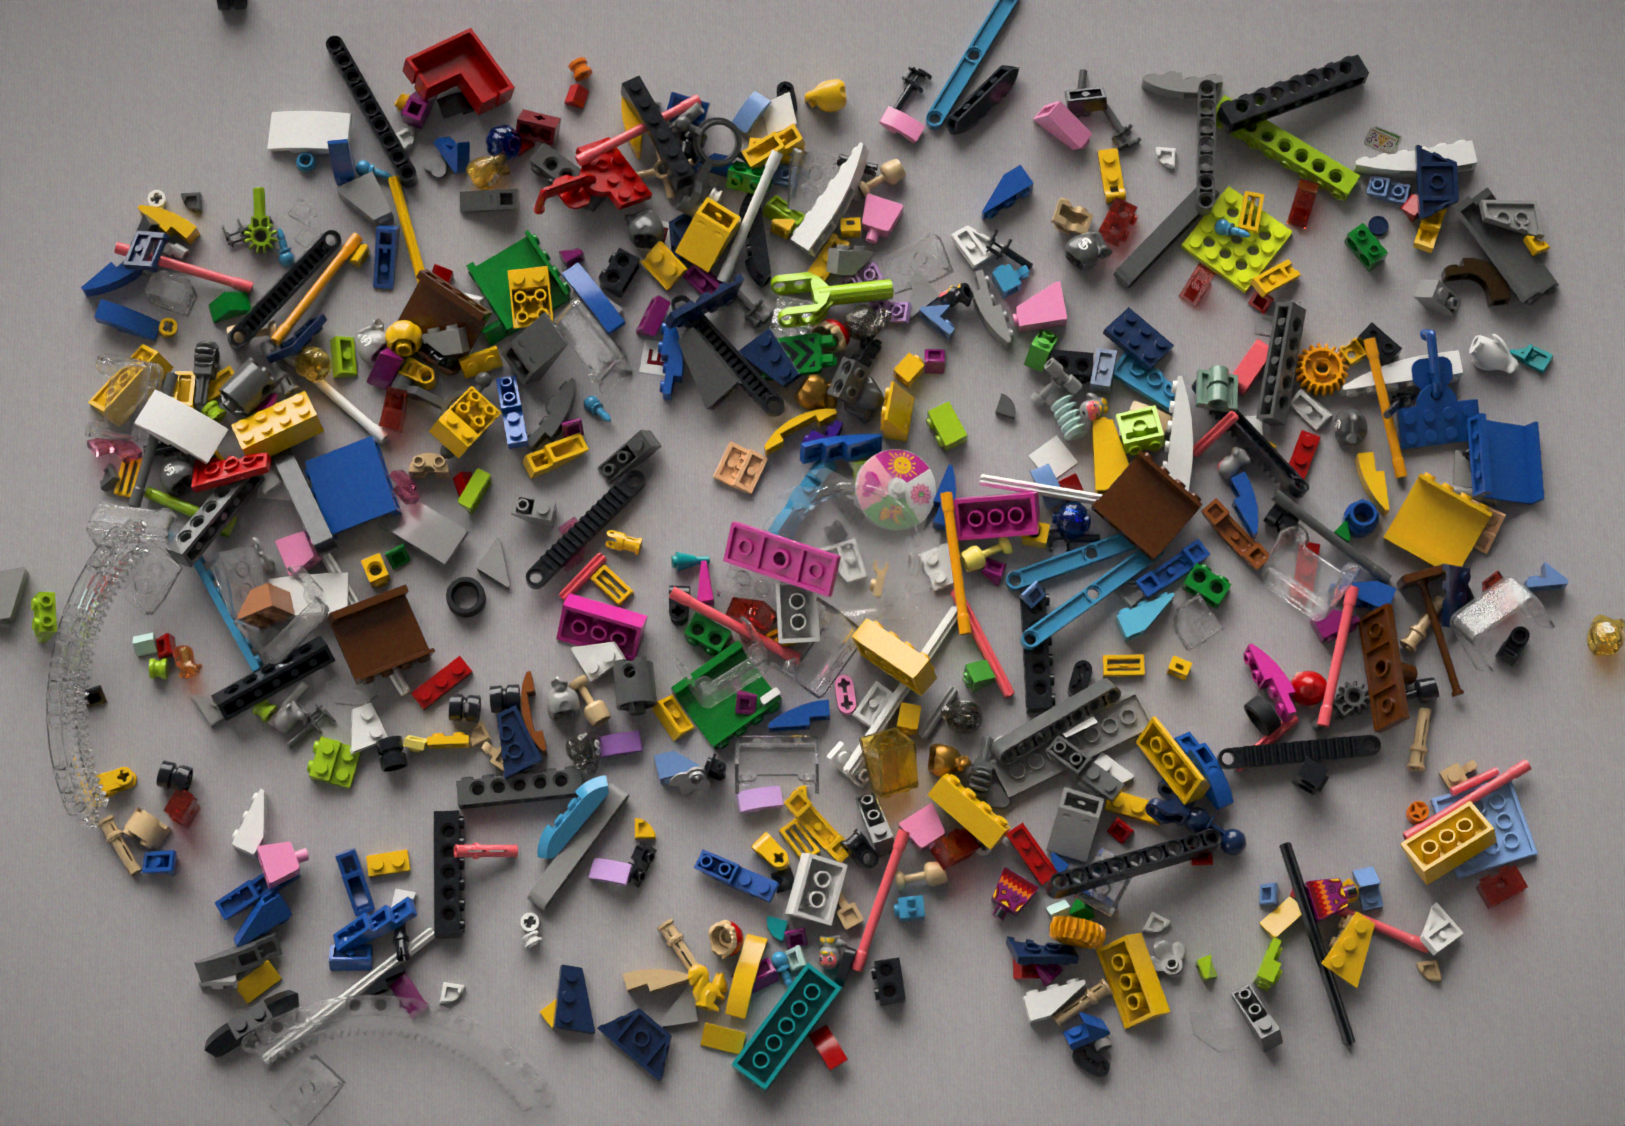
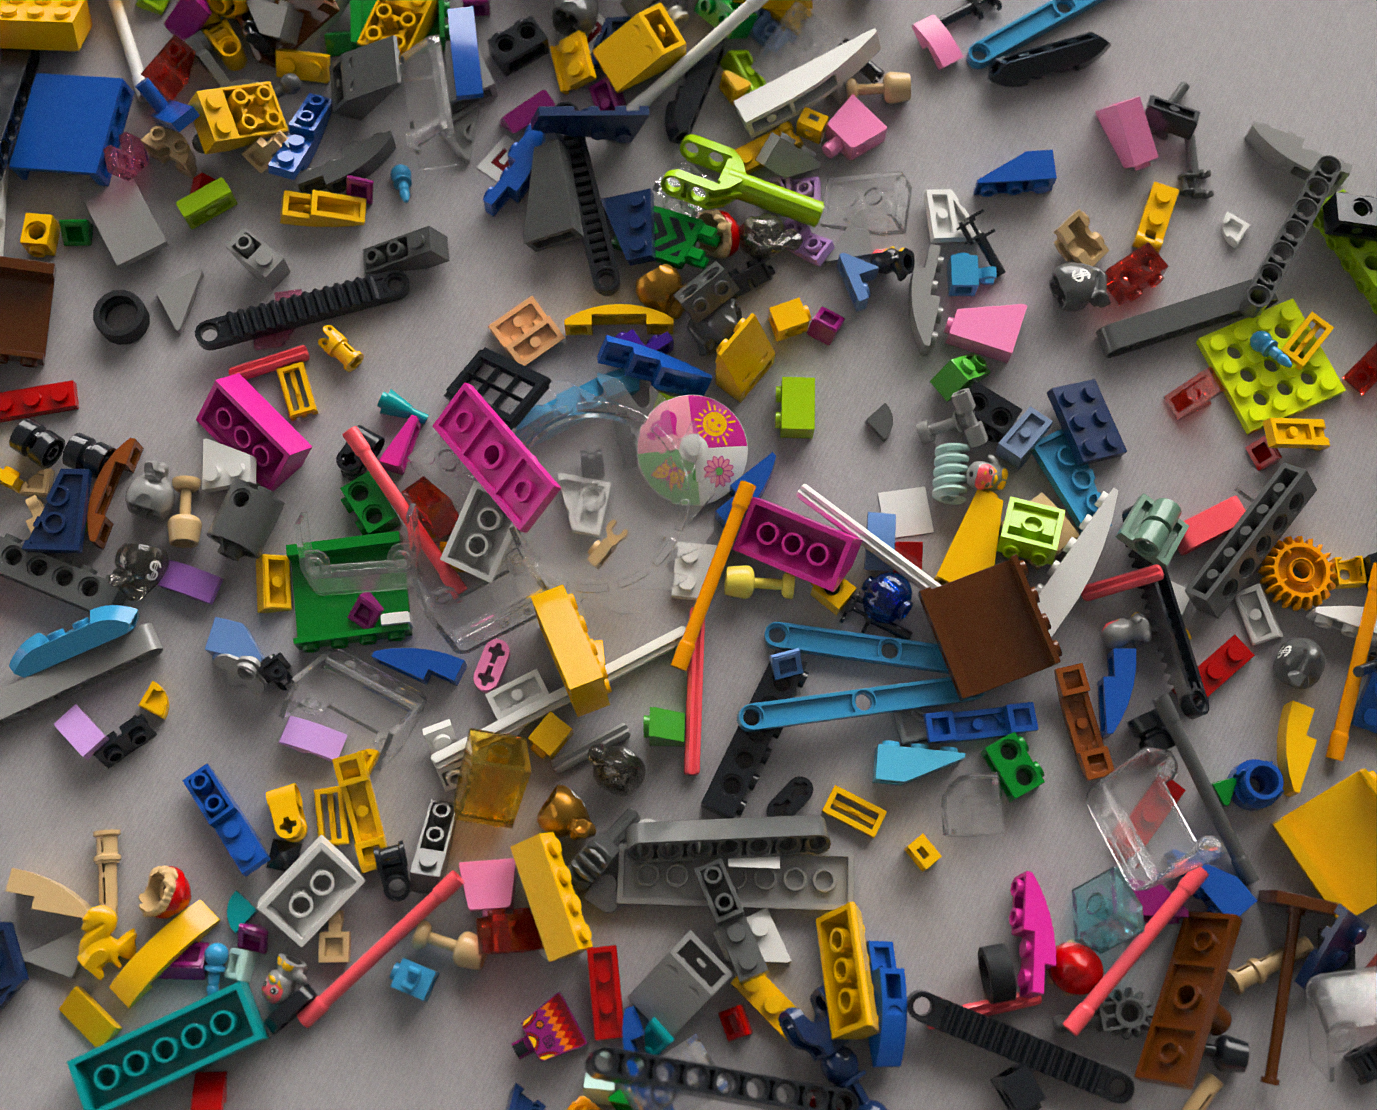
camera: 25 degrees right, 0 degrees up
(418, 441) = (167, 114): none -> blue piece
(494, 438) = (262, 152): none -> tan plate
(747, 508) = (502, 385): none -> black piece
(752, 307) = (647, 161): dark grey piece -> none
(894, 981) = (340, 1063): black brick -> none
(994, 571) = (758, 609): magenta slope -> none
(1076, 860) = (656, 1037): none -> teal tile
(1309, 643) = (1106, 911): none -> clear light blue slope

